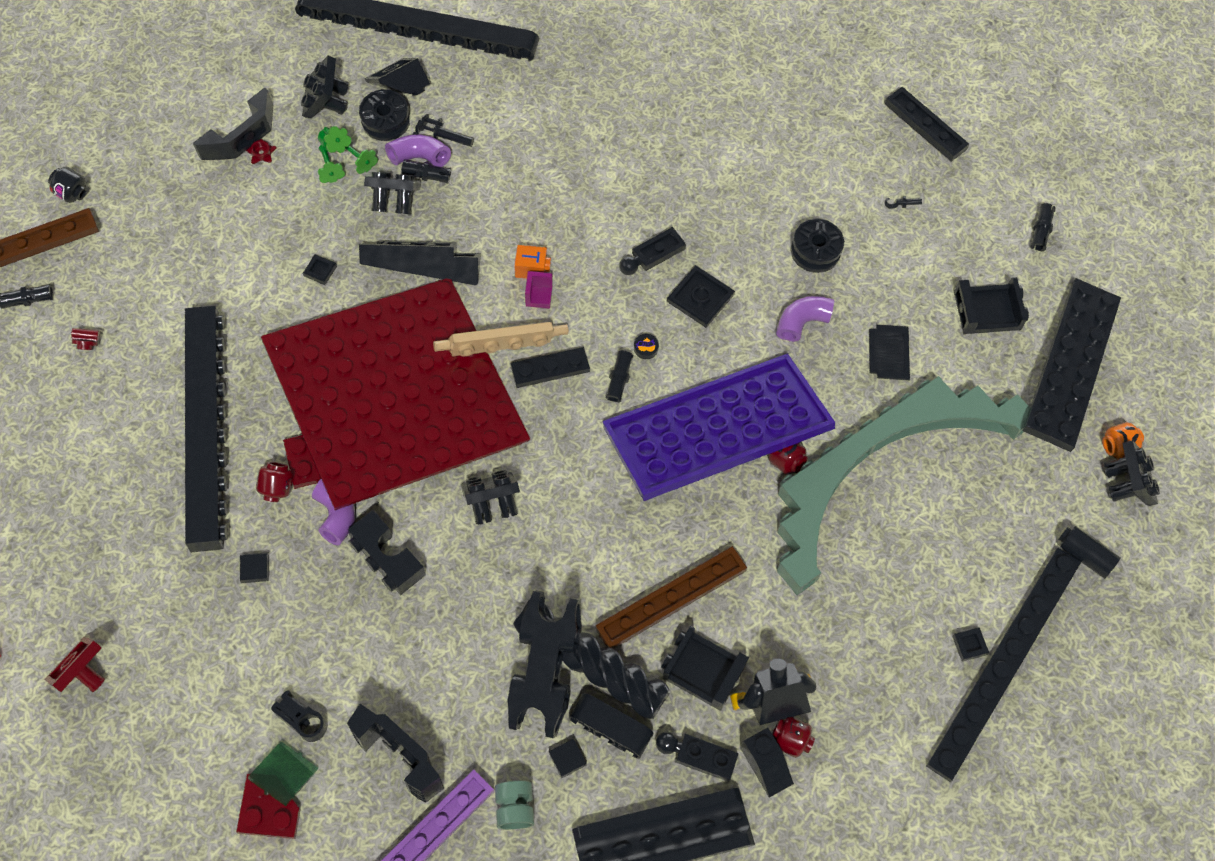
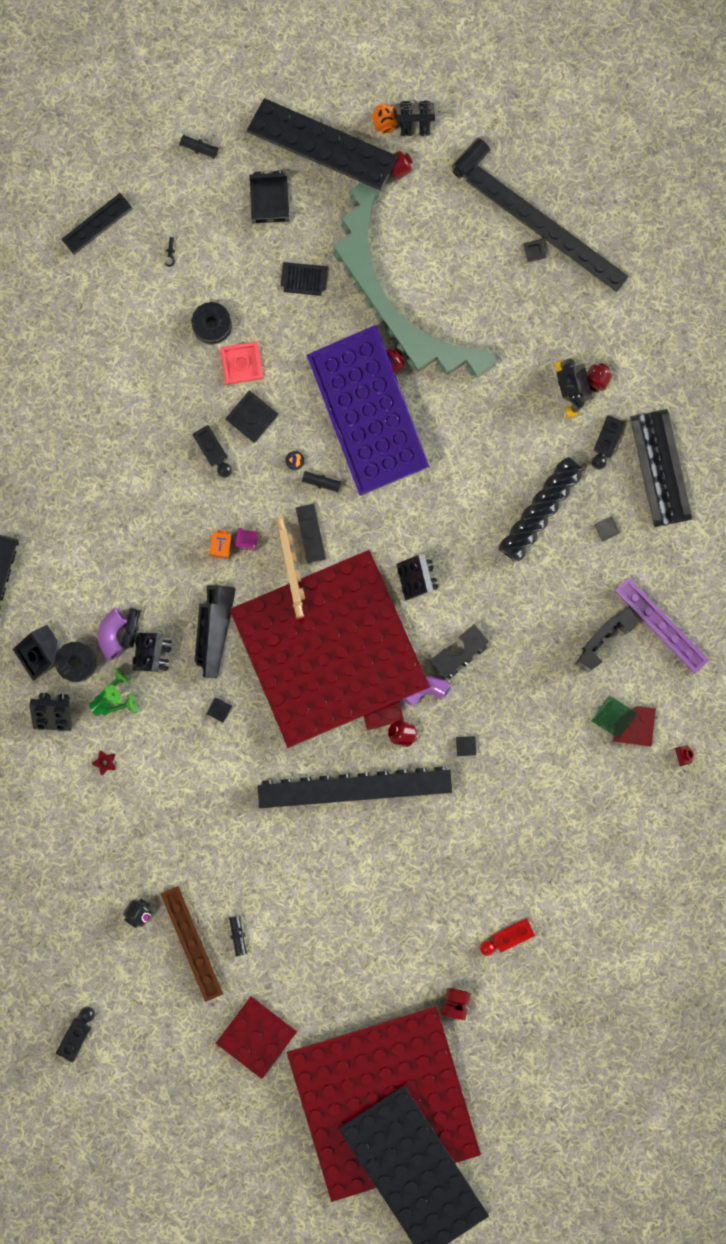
camera: 85 degrees left, 20 degrees up
(76, 666) = (539, 861): dark red tile -> none
(85, 338) = (278, 885): dark red plate -> none
(214, 147) = (102, 800): black slope -> none
(297, 715) = (573, 711): black piece -> none
(440, 132) = (91, 616): black piece -> none
(514, 805) = (640, 563): sand green wheel -> none
(548, 643) = (535, 535): black piece -> none
(611, 724) = (587, 498): black beam -> none
(670, 598) = (497, 452): reddish brown plate -> none
(703, 668) = (548, 433): black panel -> none
(767, 762) = (613, 396): black slope -> none
(769, 283) = (241, 363): none -> coral tile
(802, 311) = (270, 340): medium lavender cylinder -> none
(1062, 461) = (402, 166): none -> dark red head

